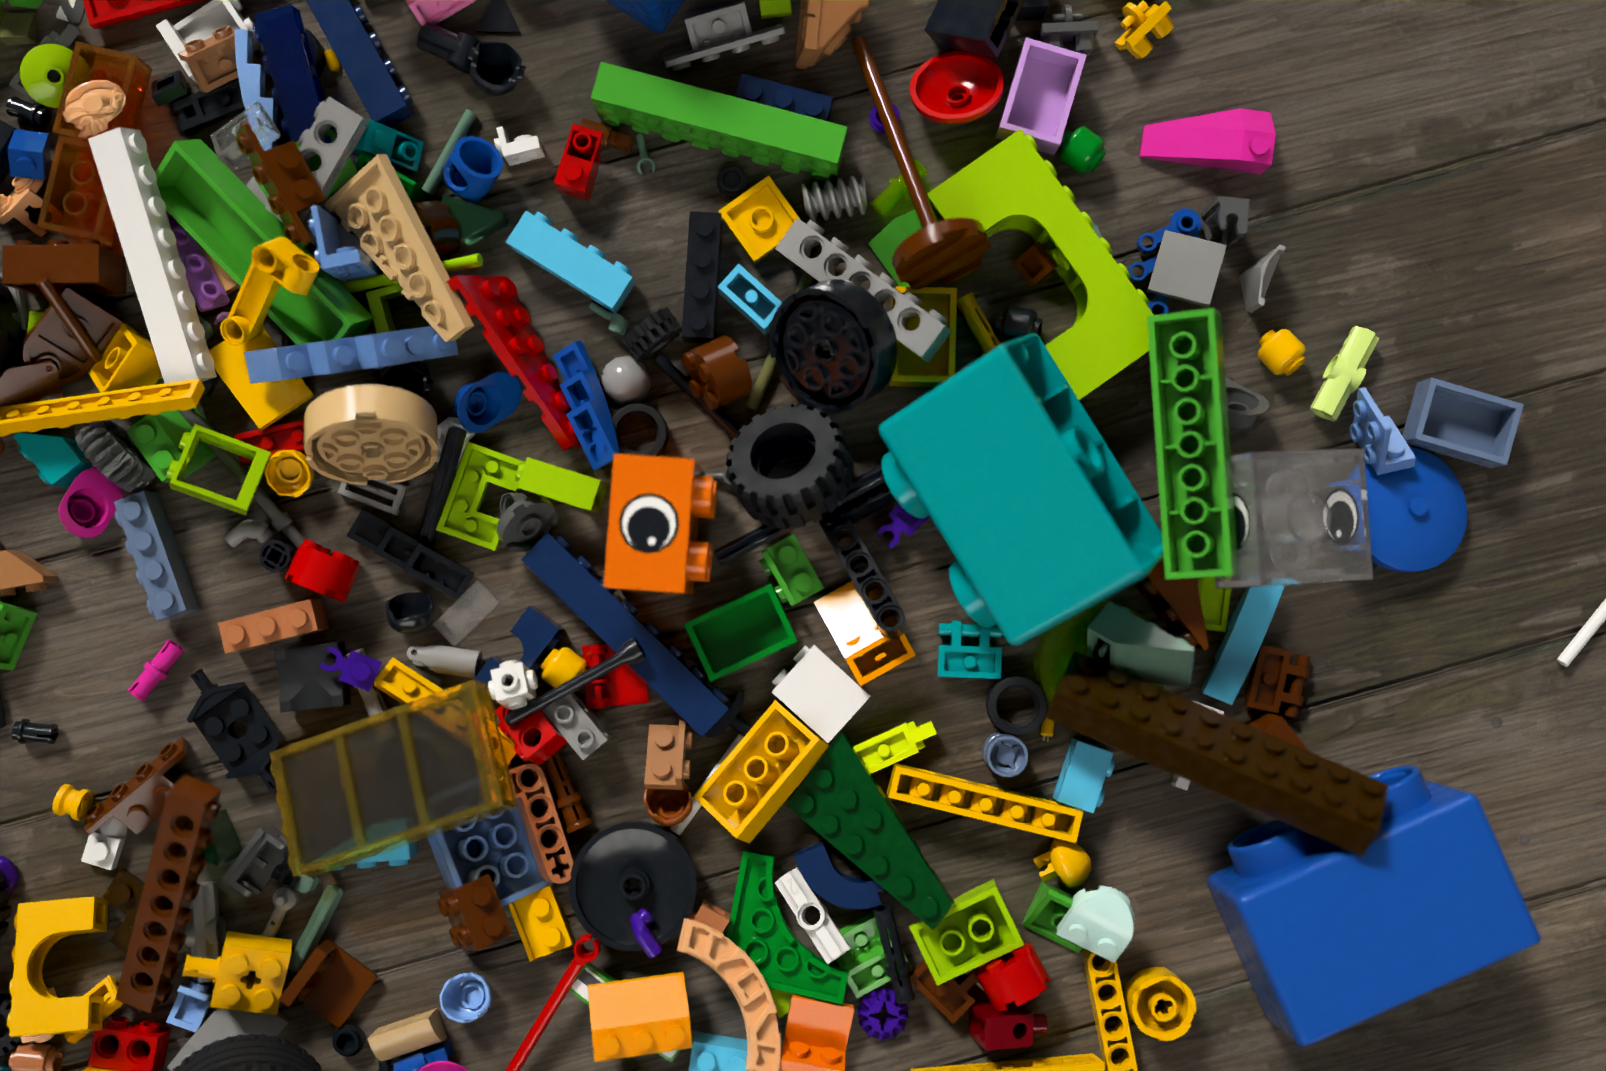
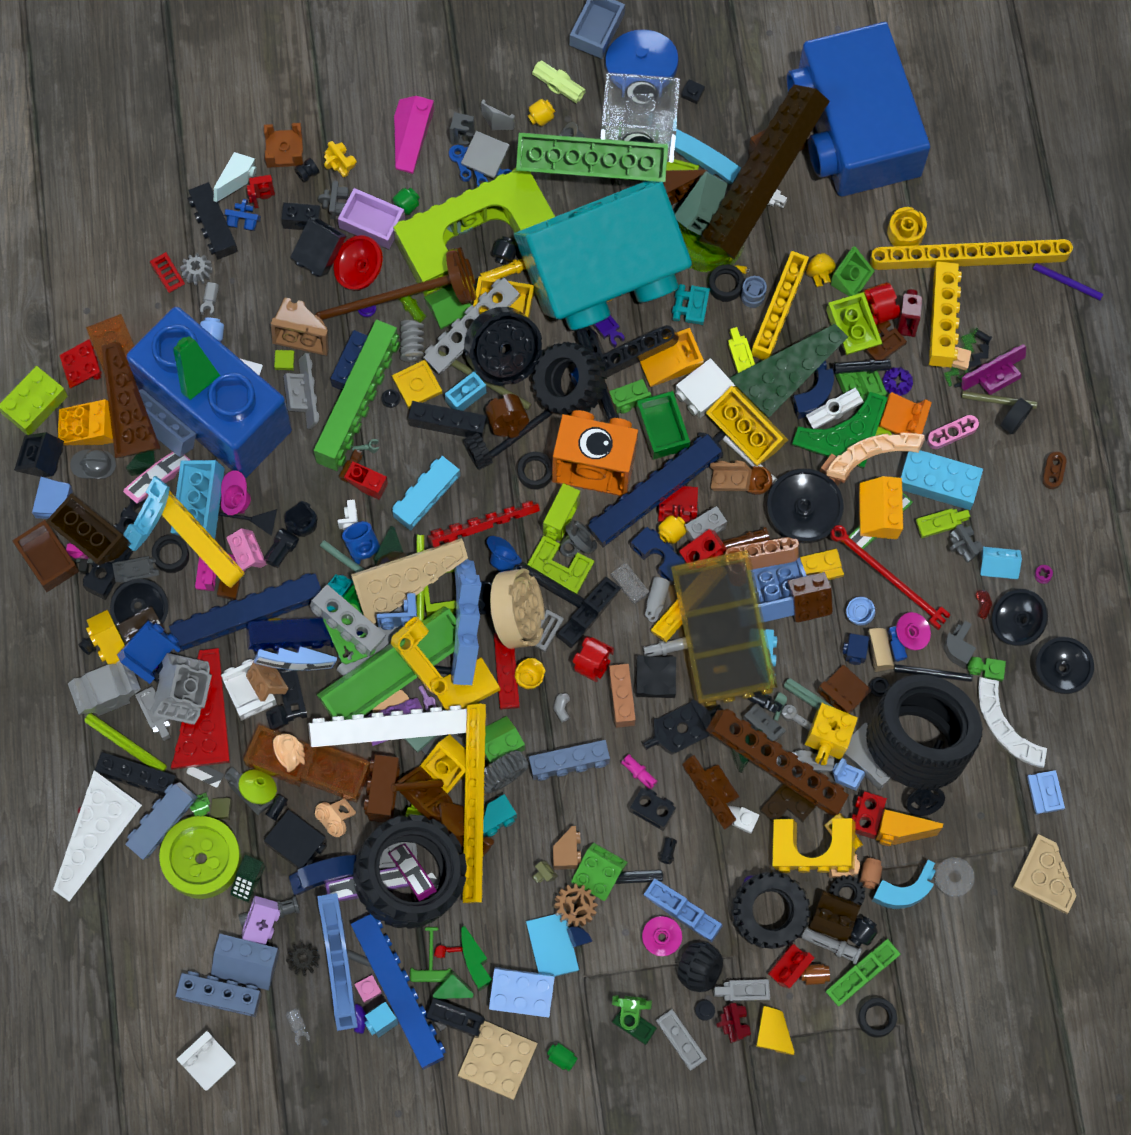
camera: 85 degrees left, 15 degrees down
(29, 154) = (306, 803): blue brick -> none
(72, 802) = (714, 831): yellow wheel -> none
(89, 504) = (531, 798): dark pink piece -> none
(89, 694) = (649, 813): none -> black brick
(189, 444) = (529, 691): lime window -> none
(225, 137) = (319, 666): clear slope -> none
(281, 521) = (556, 686): dark grey bar -> none
(283, 556) = (579, 688): black wheel -> none
(285, 180) = (358, 633): reddish brown bracket -> none
(356, 670) = (655, 645): dark purple plate -> none
(403, 996) = (856, 649): none -> dark blue brick
(410, 612) = (625, 613): black hair -> none
(520, 691) = (680, 554): white brick -> none
(589, 407) = (514, 494): blue slope -> none
(617, 322) = (465, 474): sand green hand -> none
(626, 380) = (501, 474): light grey hair -> none
(629, 653) = (667, 482): black piece -> none
(642, 934) = (828, 502): dark purple arm -> none
(1035, 264) = (469, 236): reddish brown plate -> none
(1084, 776) = (771, 251): medium azure brick -> none
(1099, 922) = (855, 250): light aqua slope -> none
(1269, 678) = (728, 146): reddish brown plate -> none
(1363, 604) = (692, 91): none -> black plate
(1379, 437) = (596, 68): medium blue bracket -> none

